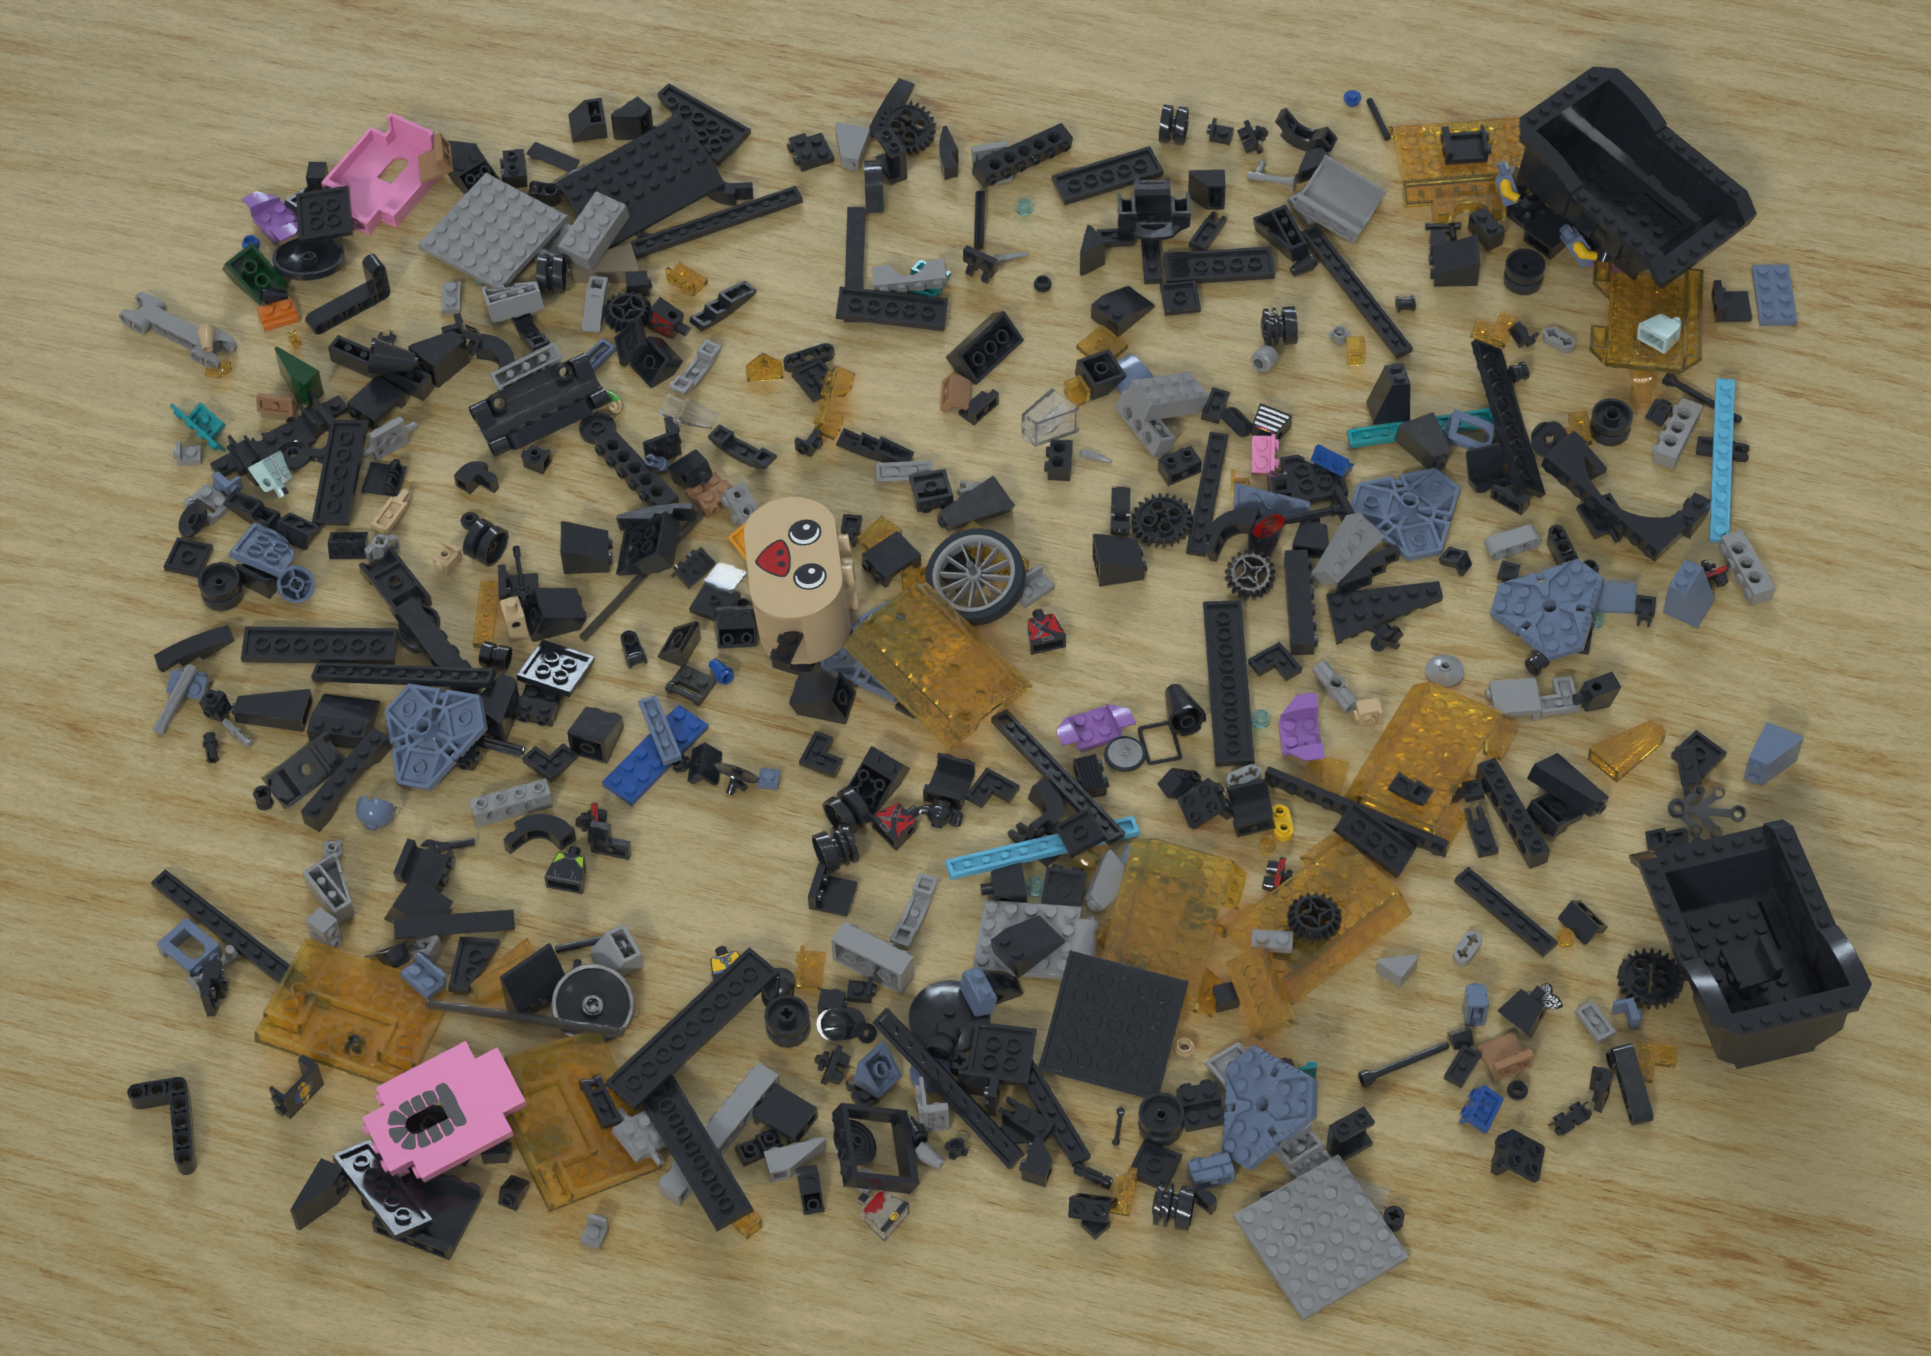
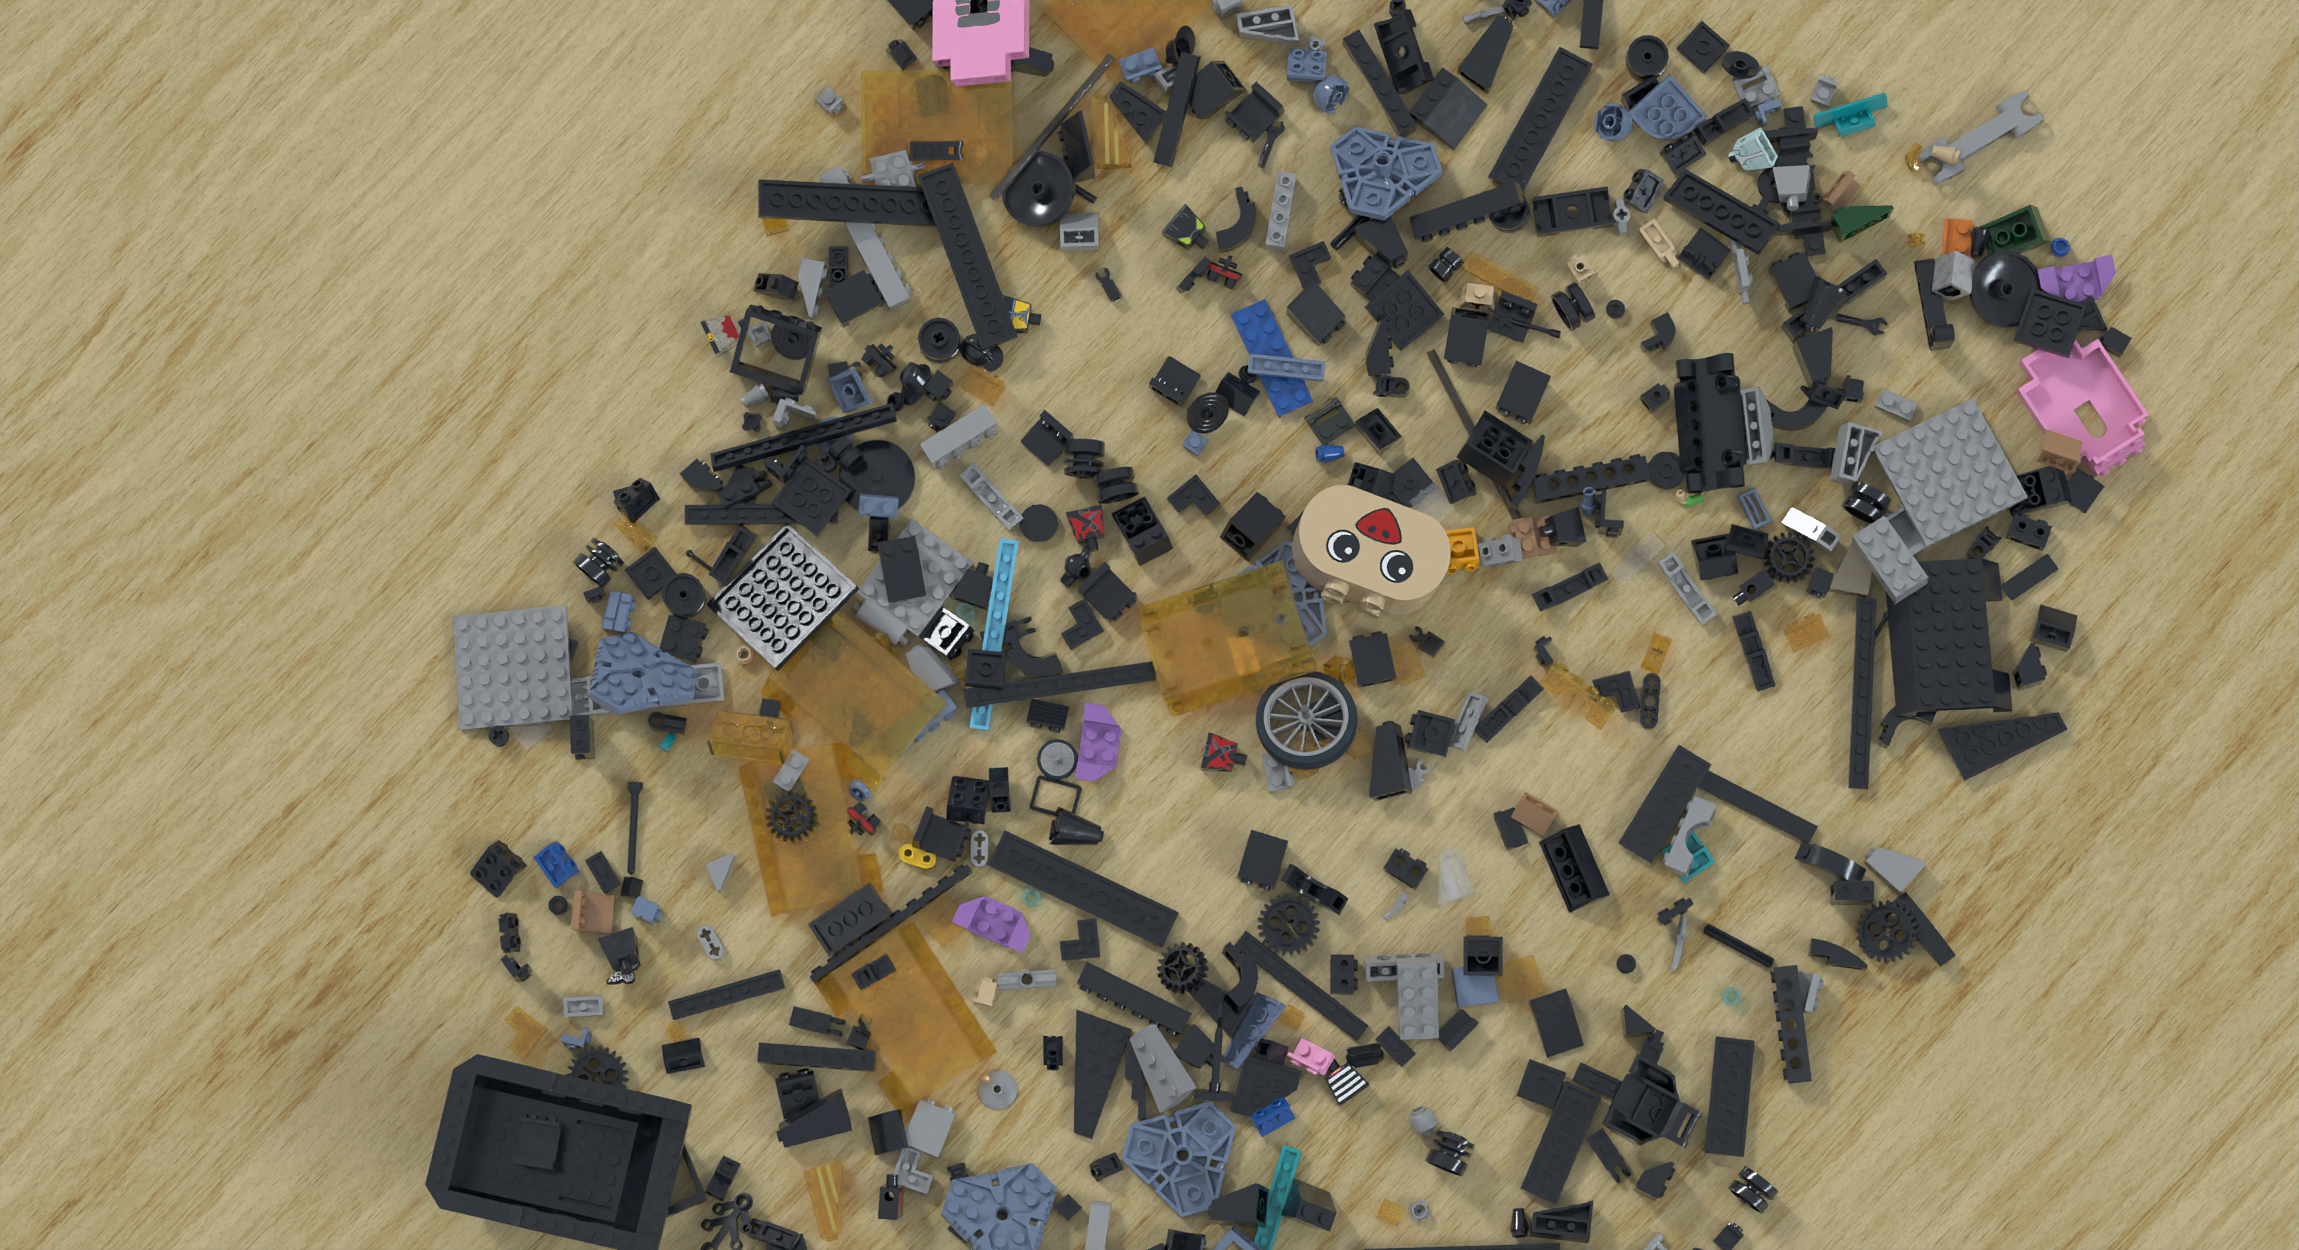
camera: 120 degrees right, 25 degrees up
(289, 432) = (1792, 184): none -> light grey torso
(315, 292) = (1953, 275): none -> flat silver piece
(357, 840) = (1306, 65): none -> sand blue bracket
(403, 675) = (1456, 172): black plate -> none
(577, 944) = (1109, 214): black bar -> none
(604, 668) = (1377, 353): none -> black slope
(656, 911) = (1109, 286): none -> black bar
(720, 817) = (1174, 381): none -> black bracket
(809, 151) = (1910, 826): black plate -> none
(913, 862) = (1039, 523): none -> black tile
(1093, 1175) = (668, 518): black axle -> none
(1094, 1101) = (733, 554): none -> black slope
(1171, 364) = (1456, 1029): none -> black panel
(1252, 891) = (859, 791): none -> sand blue hat
(1540, 727) = (887, 1132): none -> black slope
(1631, 1083) = (510, 998): black beam -> none

